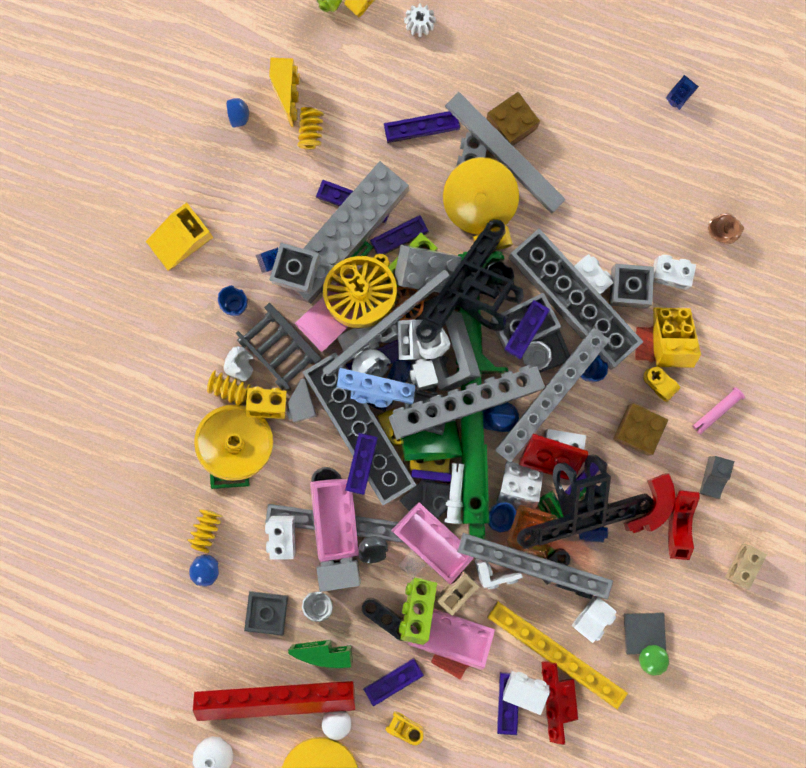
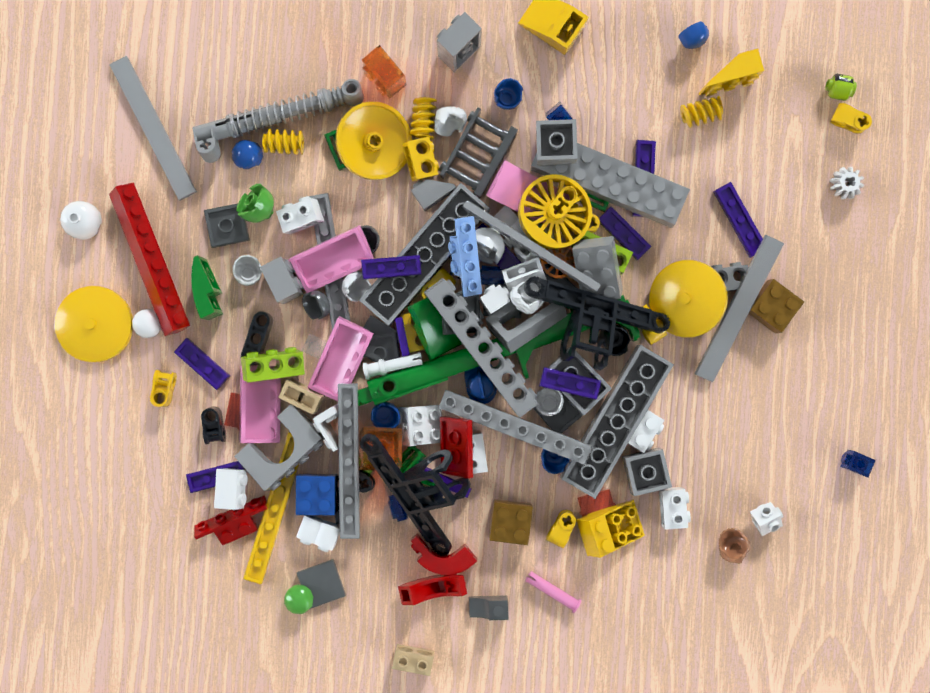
camera: 70 degrees right, 5 degrees up
(146, 655) = (153, 128): none -> light grey tile
(167, 330) = (459, 41): none -> light grey brick
(171, 411) = (384, 72): none -> clear orange brick
(175, 534) = (273, 114): none -> light grey piece
(256, 576) = (256, 205): none -> bright green cylinder
(367, 505) = (354, 286): none -> white hair
(462, 690) = (213, 427): none -> black piece
(522, 649) = (305, 438): none -> light grey arch
(557, 609) = (316, 494): none -> blue brick
(708, 190) = (767, 518): none -> white brick

